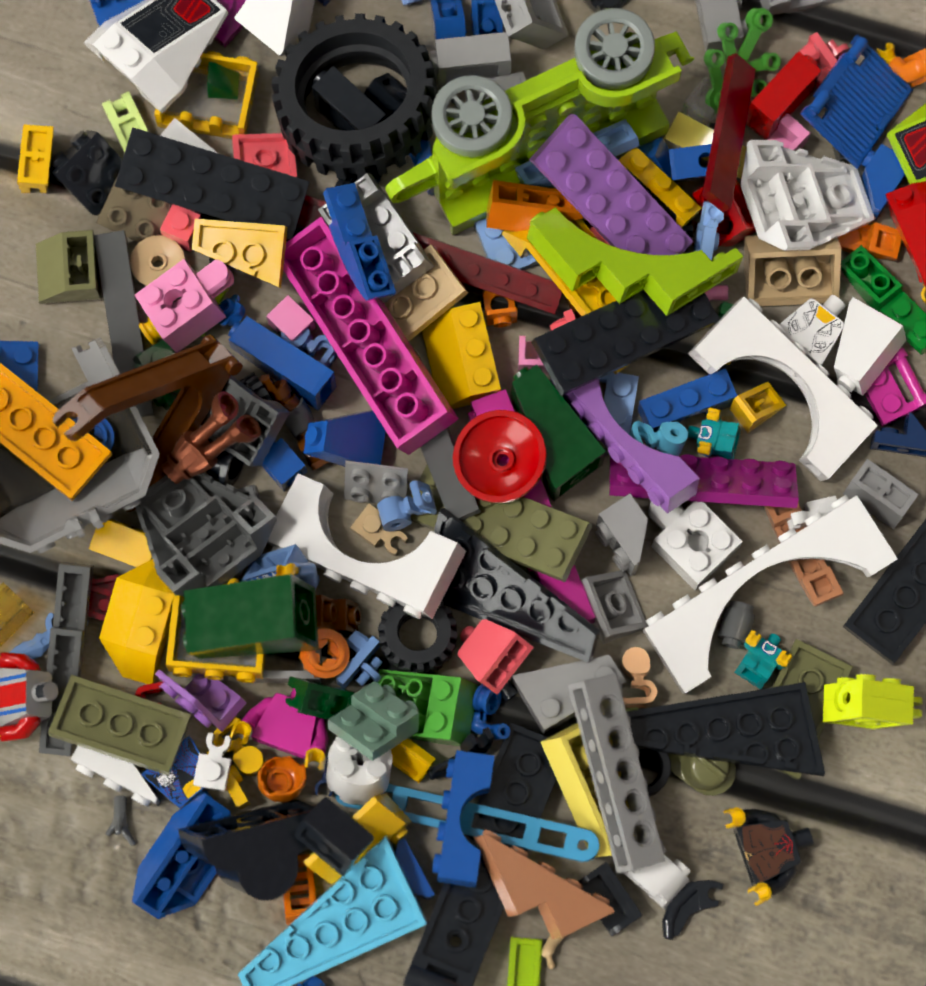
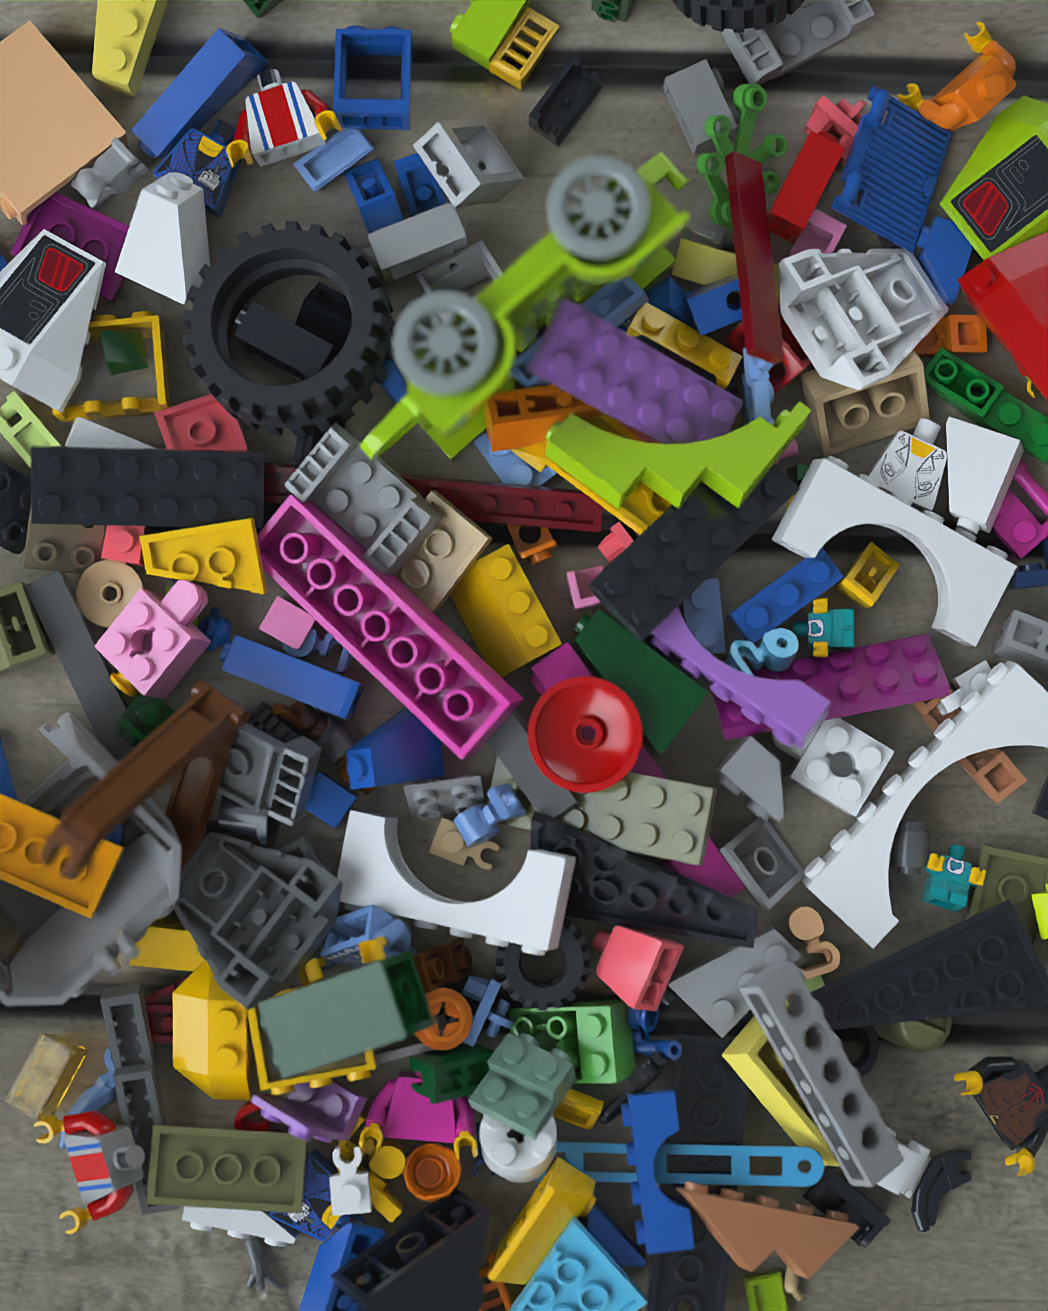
camera: 15 degrees left, 10 degrees up
(195, 453) = (225, 827): copper piece -> none
(333, 836) = (516, 1243): black panel -> none
(355, 243) = (343, 521): blue slope -> none

